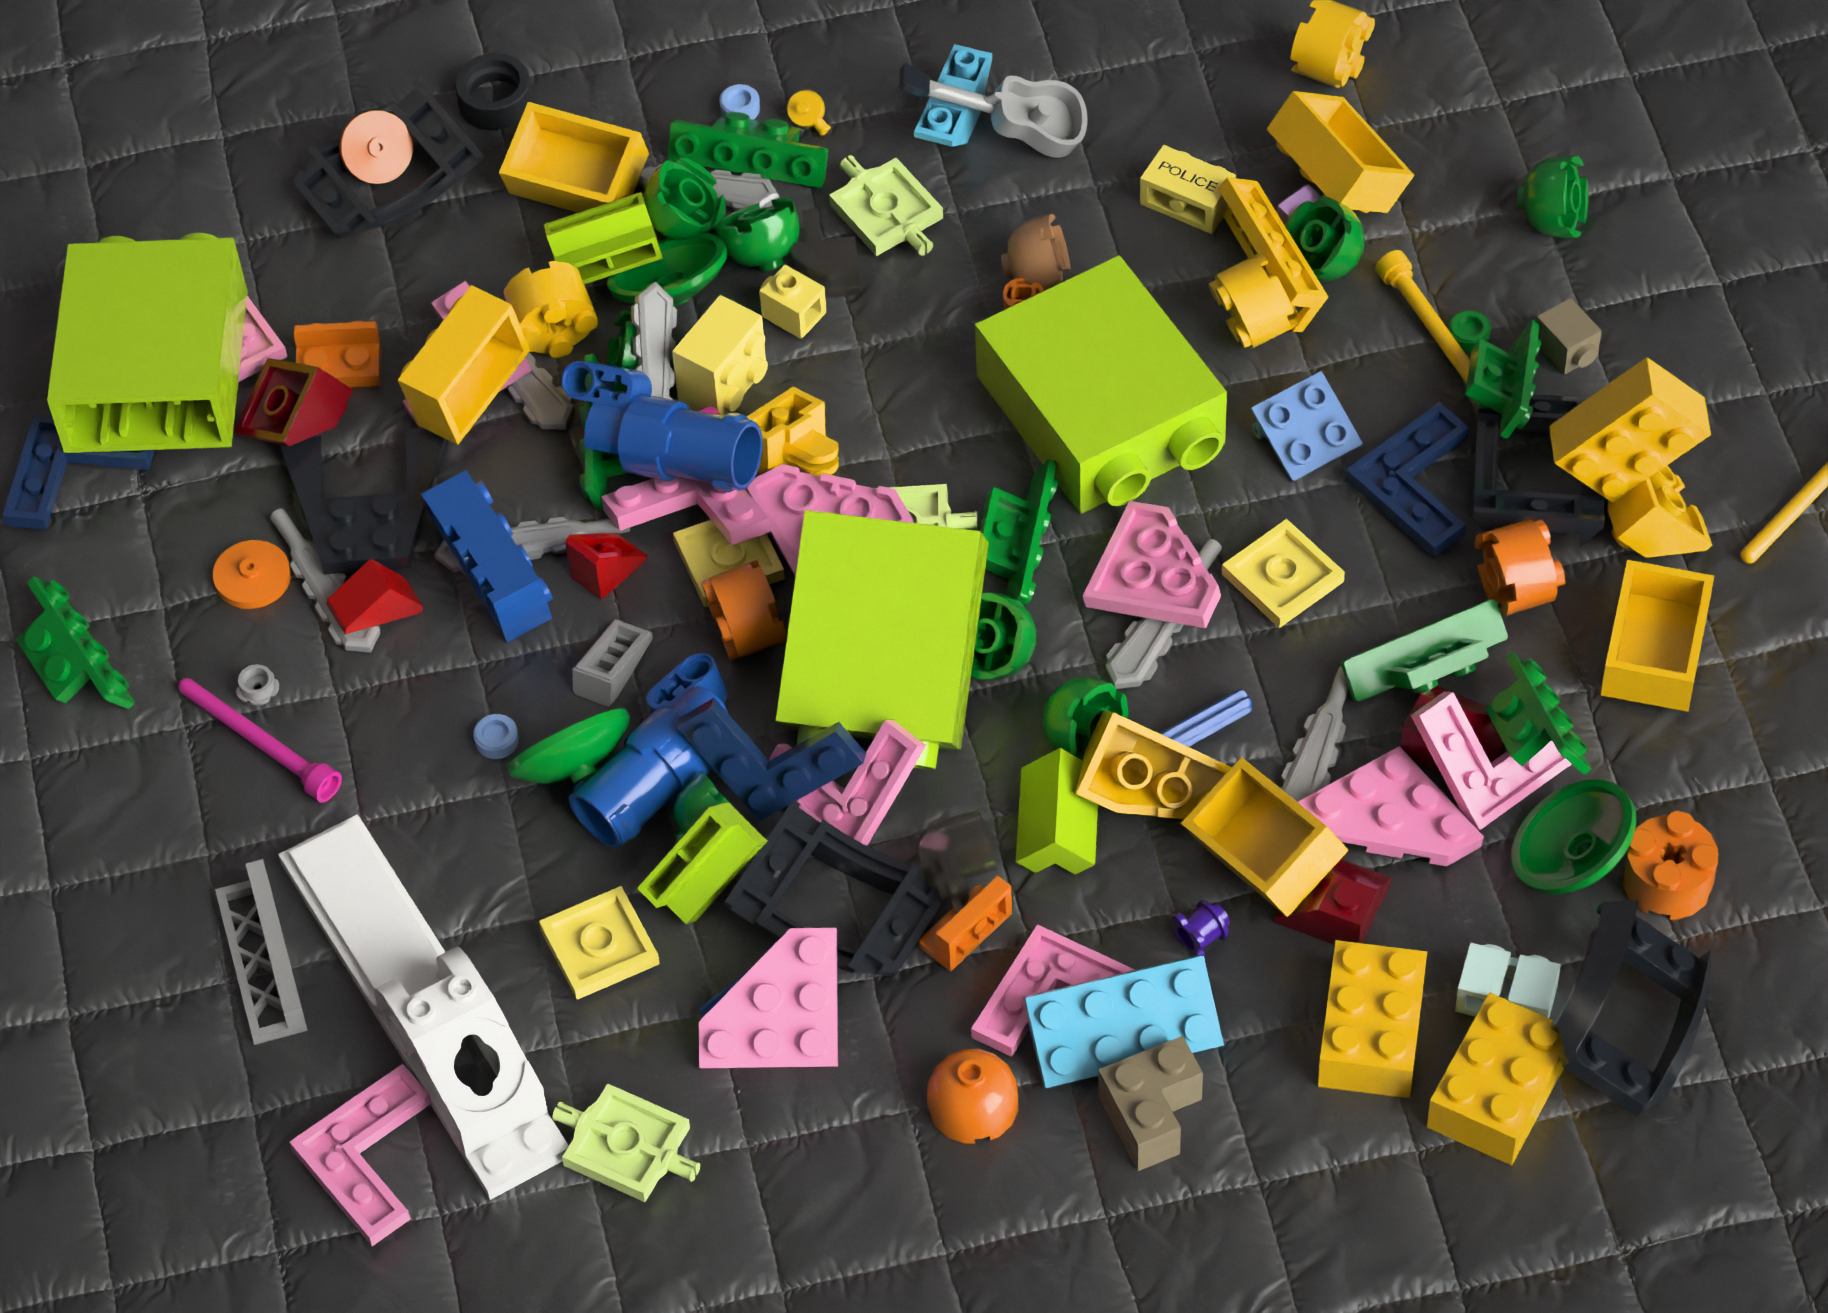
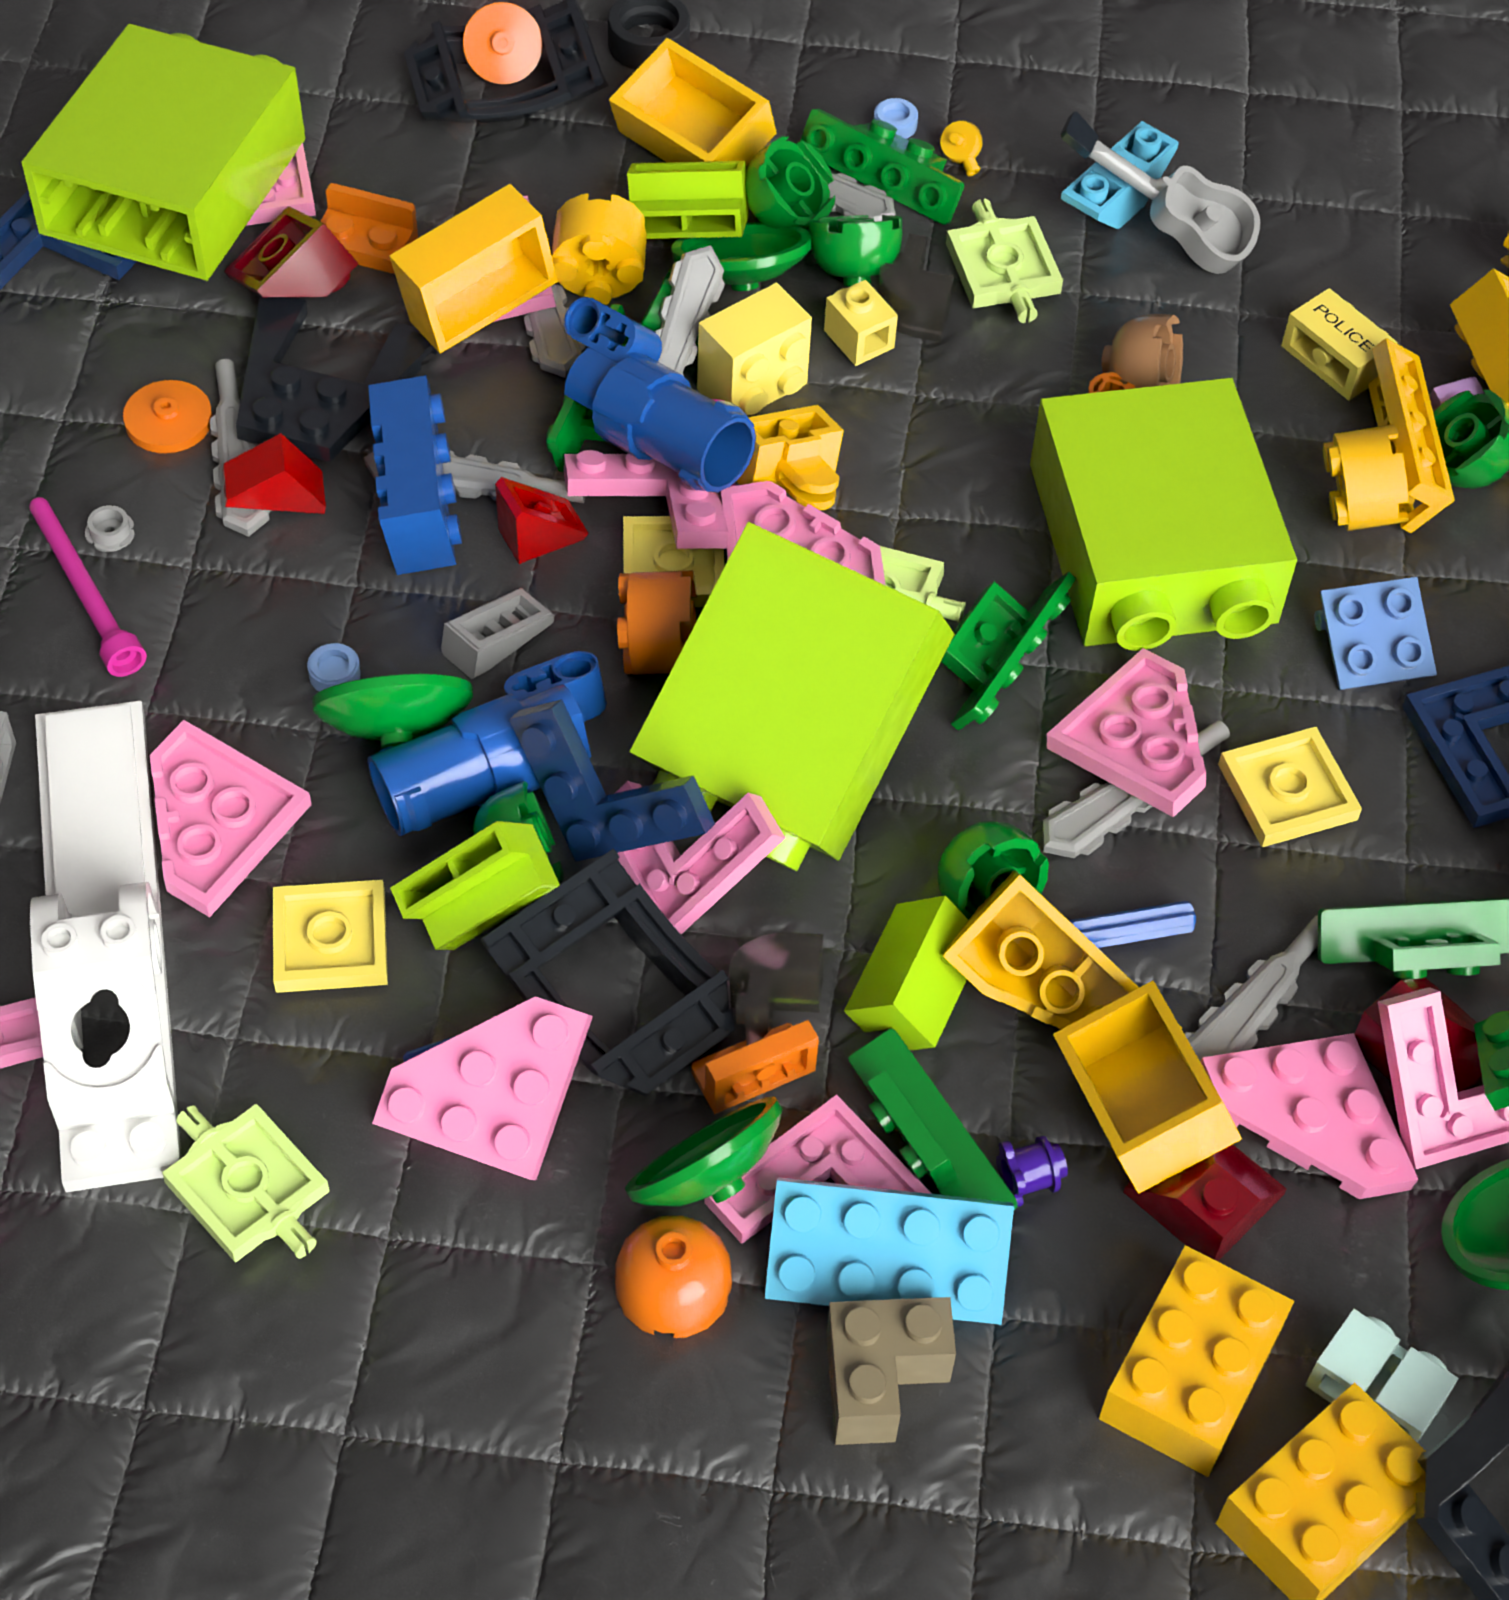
camera: 15 degrees right, 0 degrees up
(462, 881) = (216, 815): none -> bright pink plate
(967, 1000) = (709, 1159): none -> green dish
(1003, 638) = (934, 748): green cylinder -> none
(1108, 920) = (924, 1120): none -> green bracket

